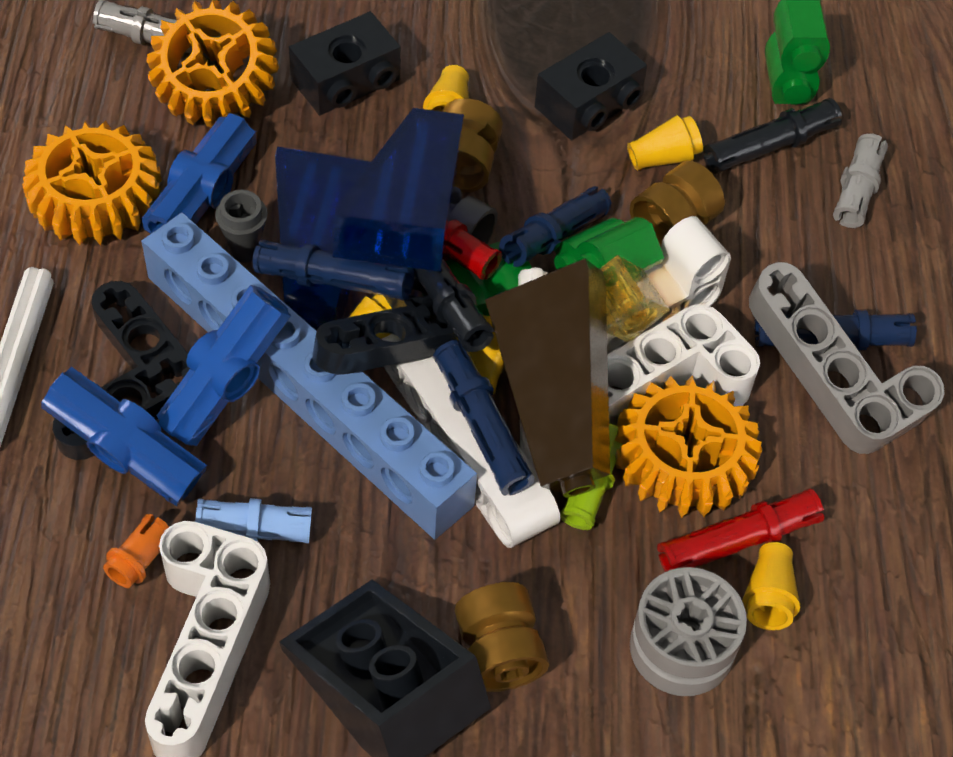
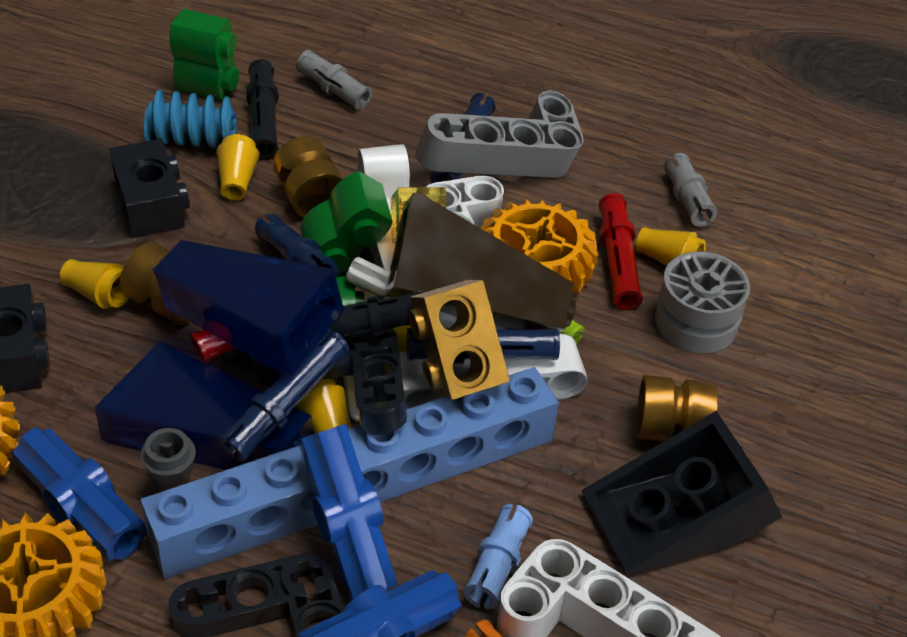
camera: 70 degrees left, 10 degrees down
(450, 384) = (471, 333): none -> pearl gold brick
(705, 83) = (189, 121): none -> dark azure piece
(894, 586) = (690, 189): none -> light grey pin

